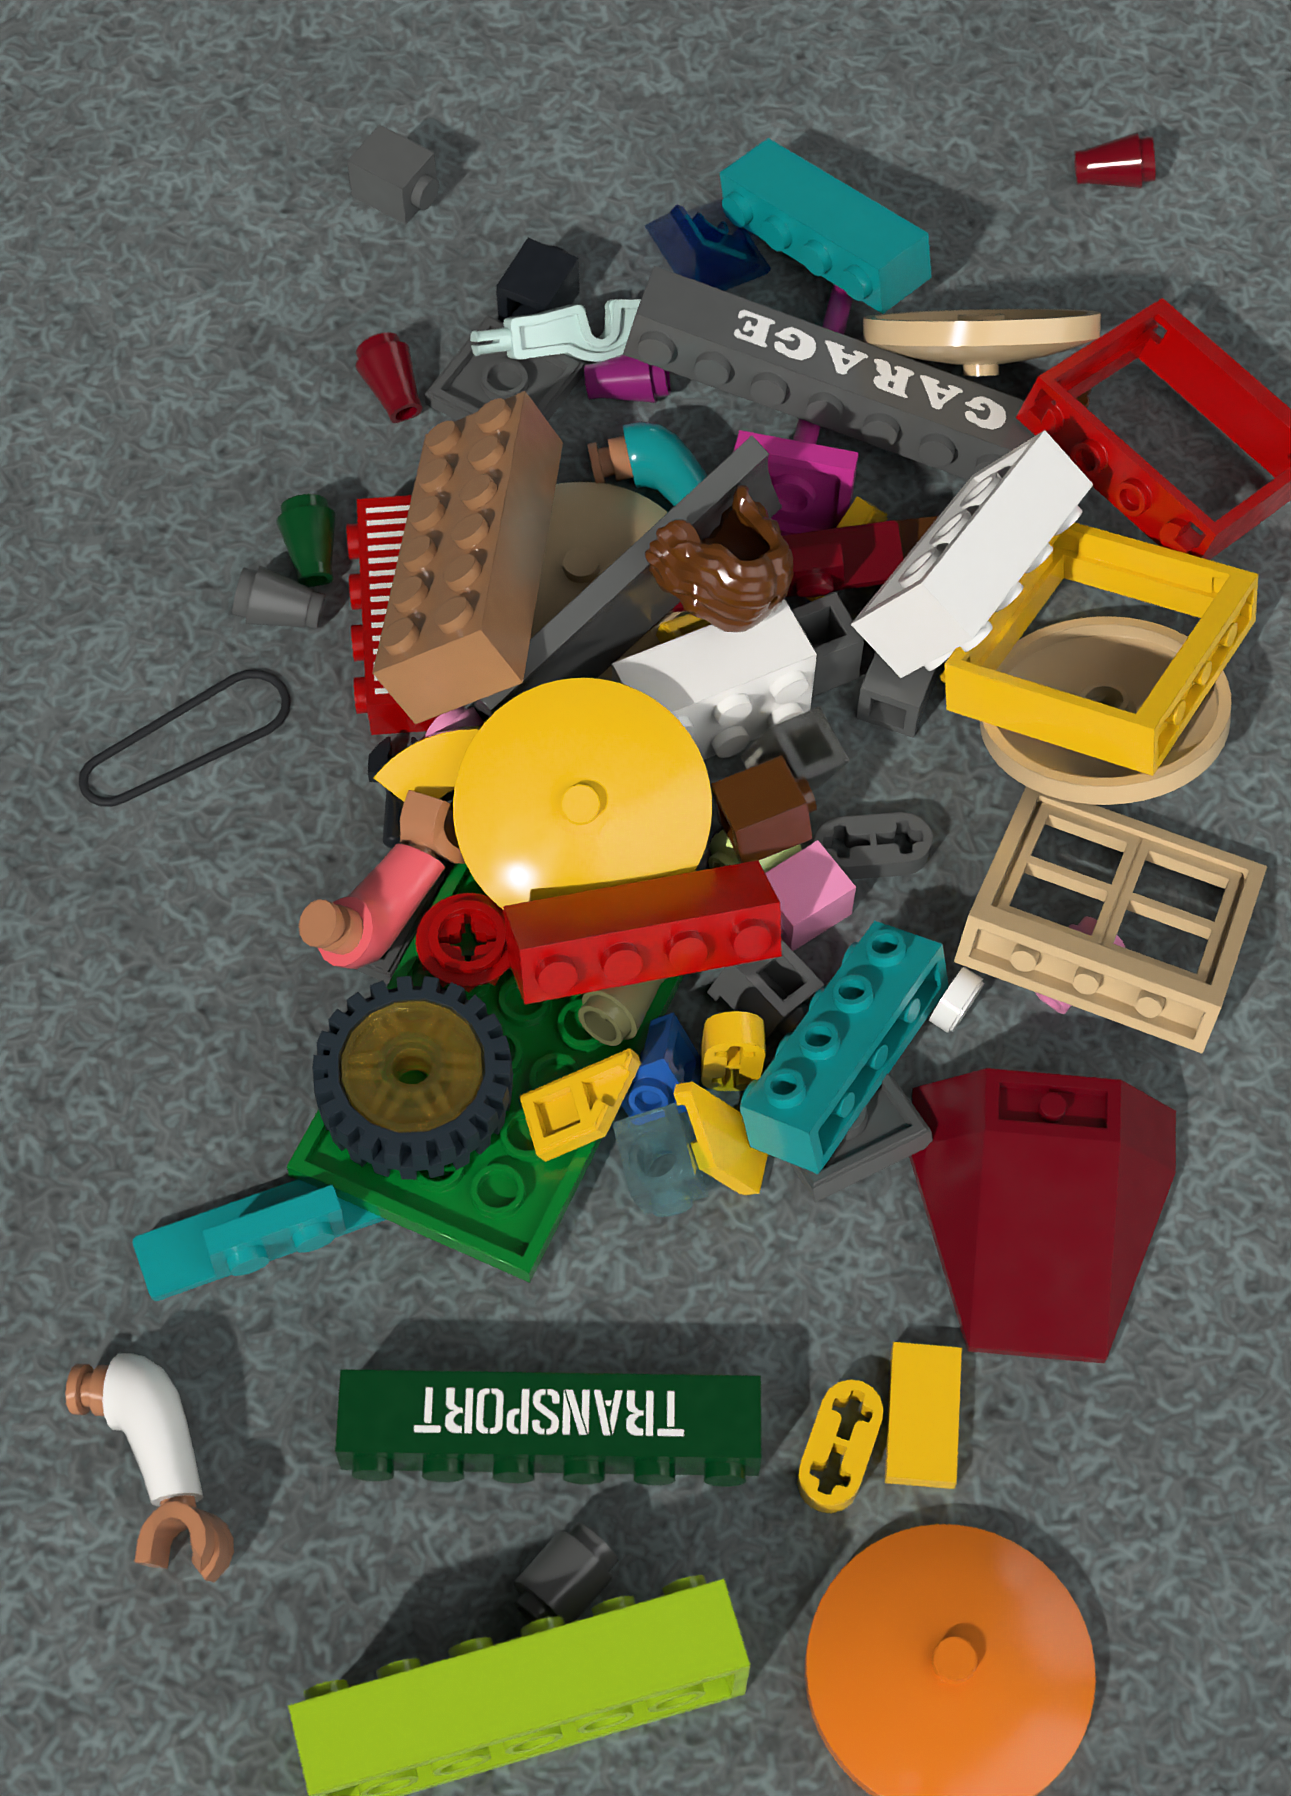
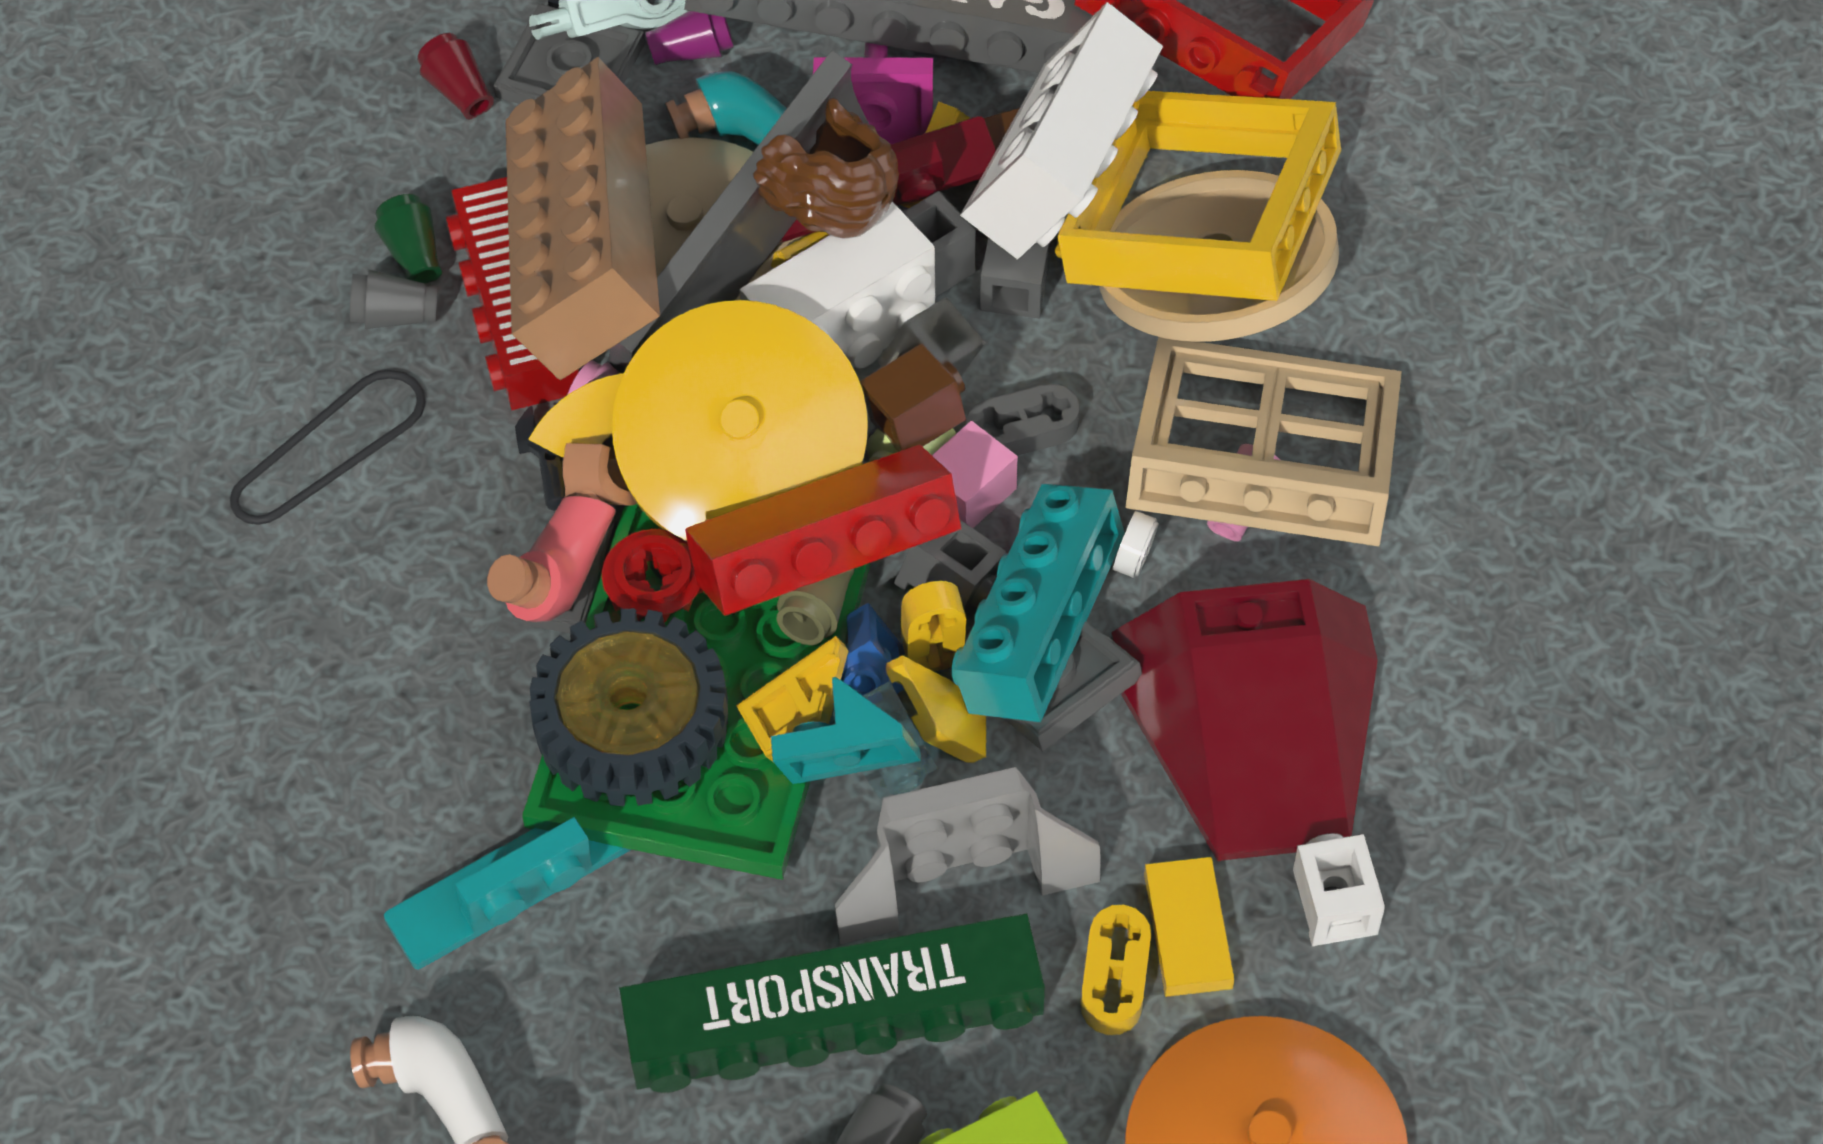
camera: 10 degrees left, 5 degrees down
(627, 1163) = (858, 742): none -> teal slope
(710, 1266) = (958, 825): none -> light grey piece
(1097, 1385) = (1345, 912): none -> white brick

